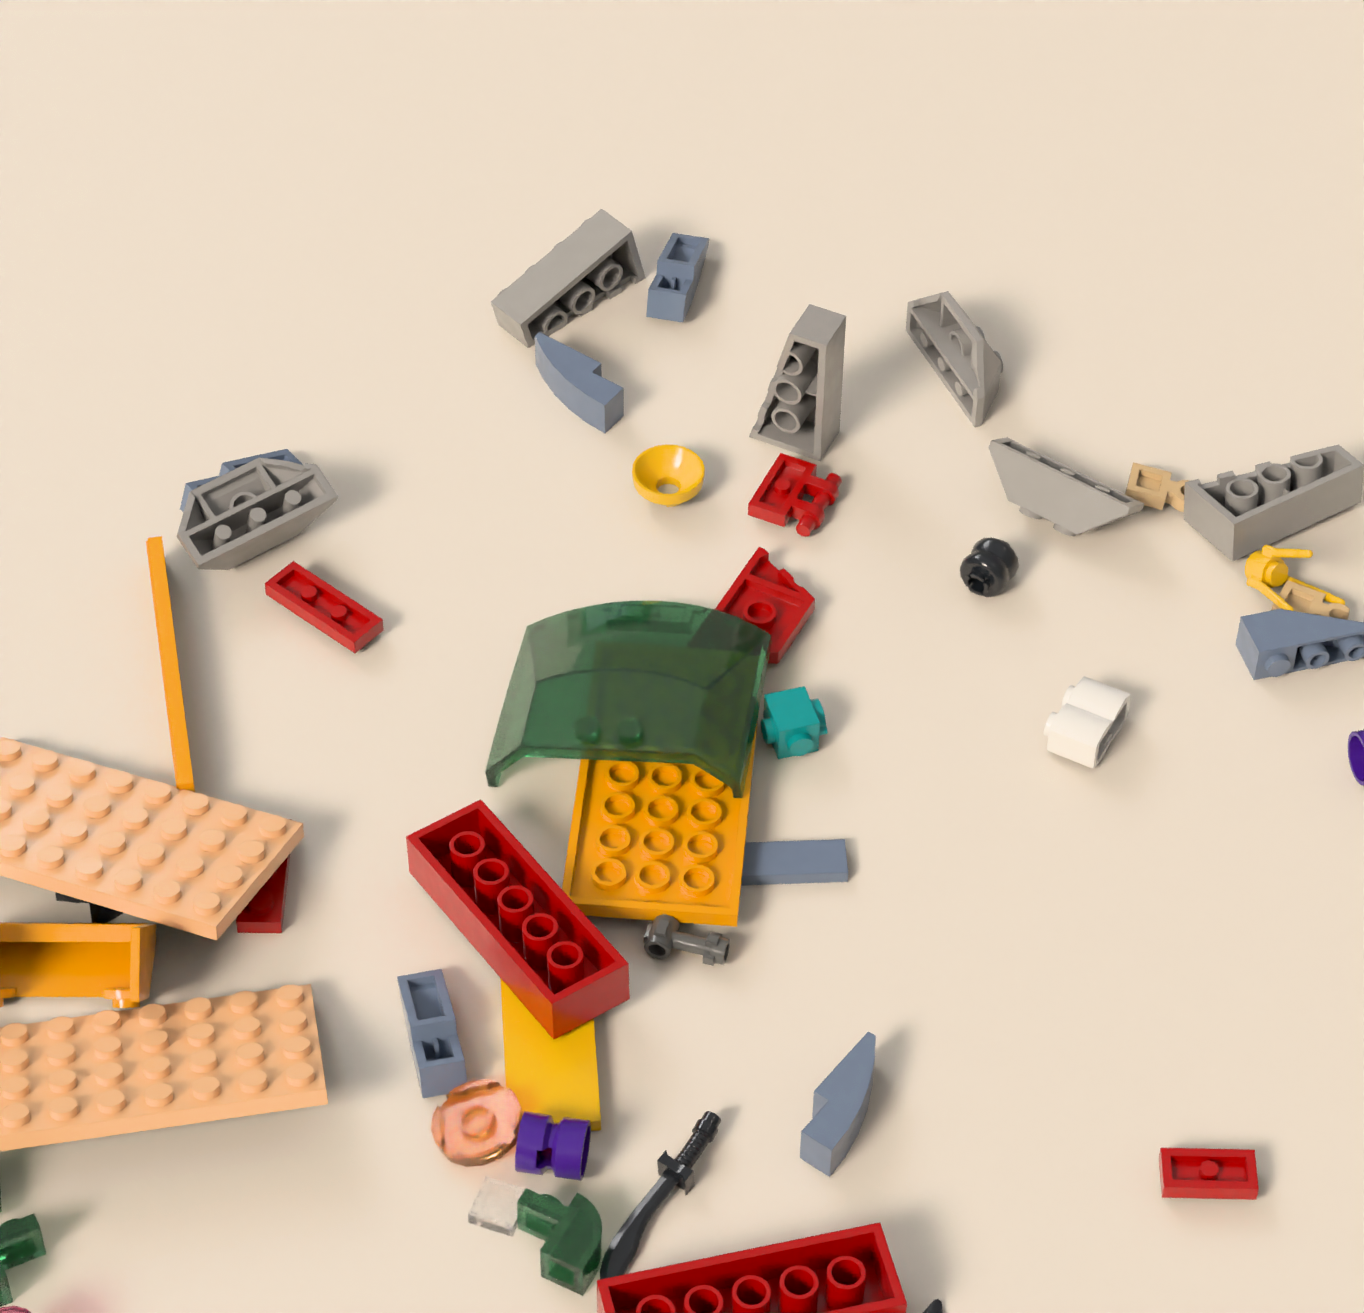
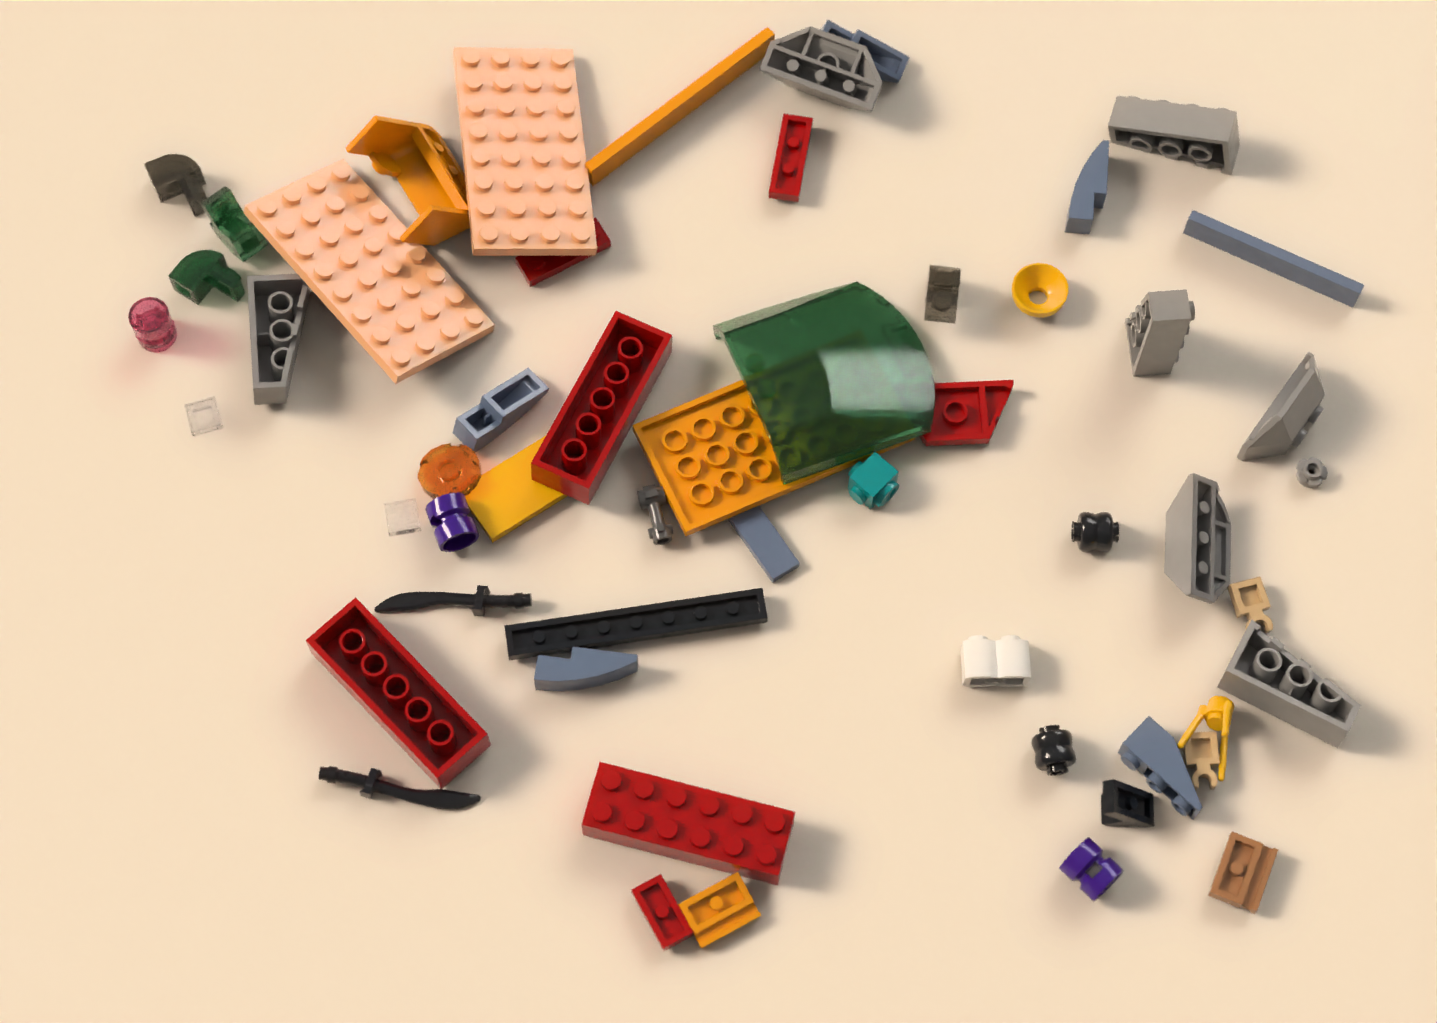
camera: 60 degrees right, 20 degrees up
(141, 1217) = (276, 326): none -> light grey wedge
(571, 1236) = (397, 572): clear green brick -> none
(607, 549) = (942, 293): none -> clear smoke brick
(676, 277) = (1239, 193): sand blue slope -> none
(772, 286) = (1273, 258): none -> sand blue tile
(782, 493) = (1081, 367): red plate -> none
(814, 1033) = (636, 623): none -> black plate
(1037, 377) = (1311, 480): none -> light grey plate
(1110, 1092) = (688, 823): none -> red brick
(1225, 720) = (1053, 750): none -> black piece
(1237, 1113) = (719, 909): none -> light orange plate
(1324, 699) = (1126, 805): none -> black slope

